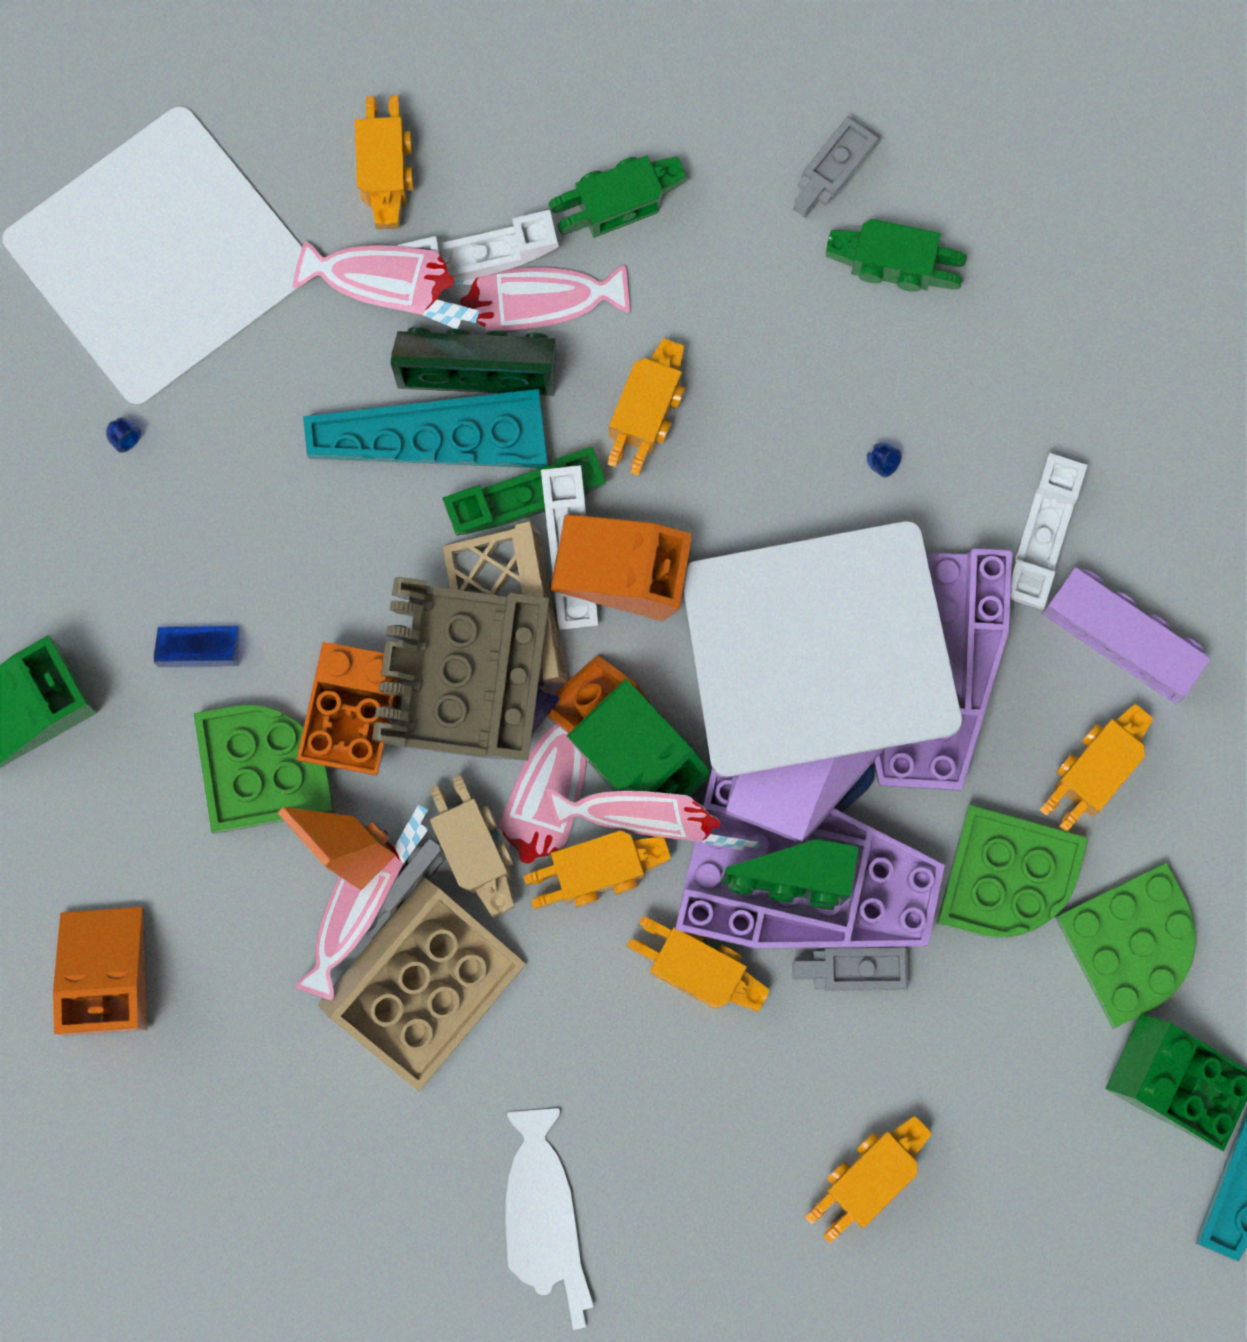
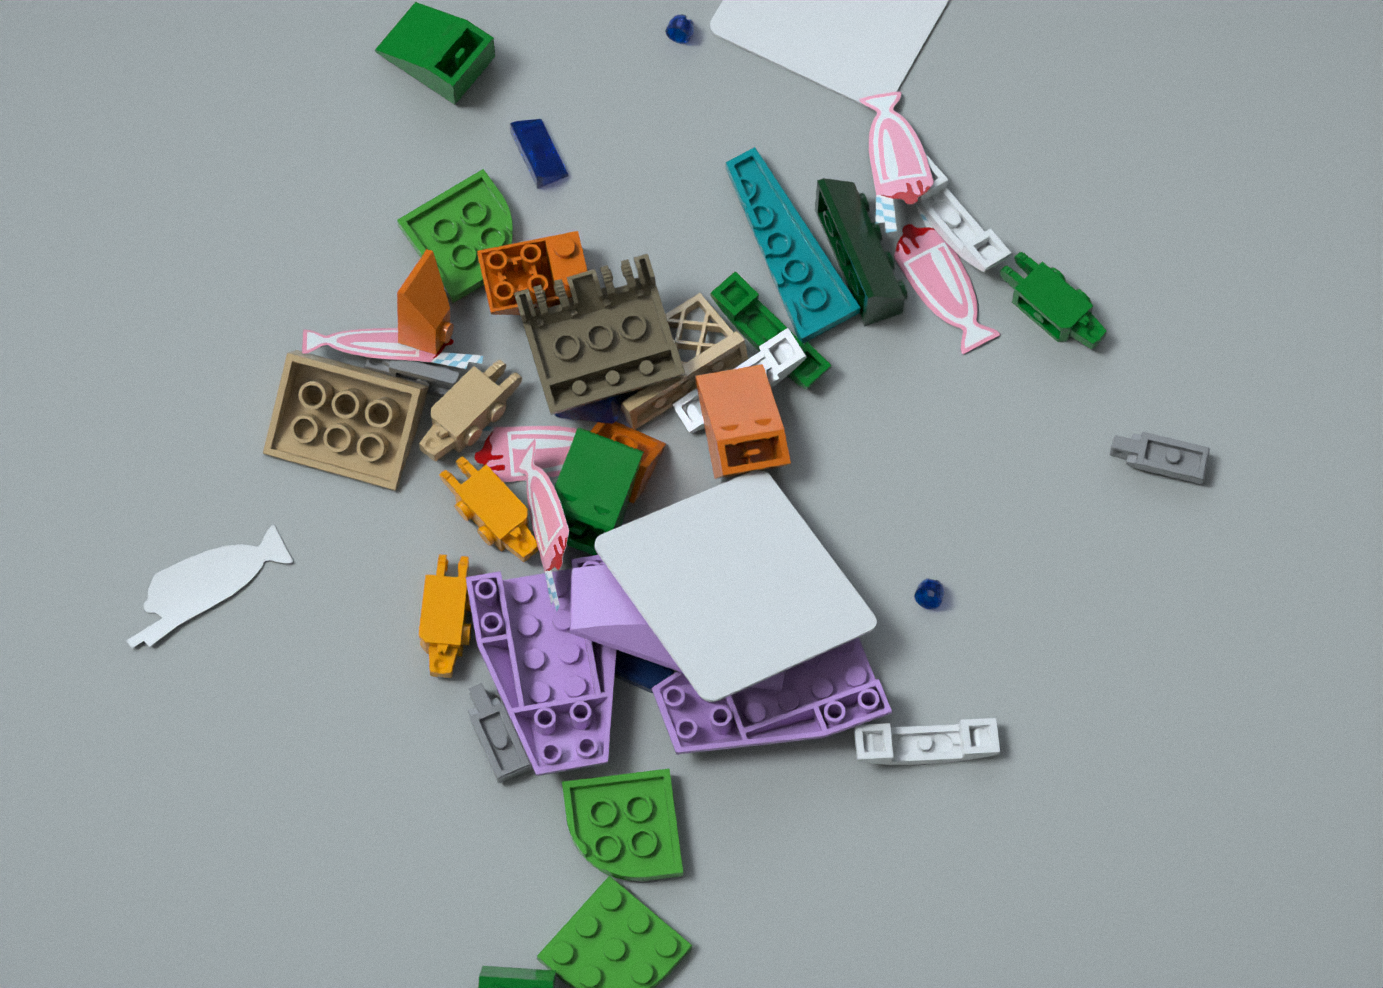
camera: 65 degrees right, 10 degrees down
(100, 973) = (254, 189): orange slope -> none
(382, 162) = (993, 117): light orange hinge -> none
(646, 403) = (886, 393): light orange hinge -> none
(809, 871) = (554, 648): green slope -> none
(873, 1177) = (334, 811): light orange hinge -> none
(896, 255) = (1108, 532): green hinge -> none
(1102, 766) = (747, 861): light orange hinge -> none
(1127, 635) = (868, 839): lavender brick -> none

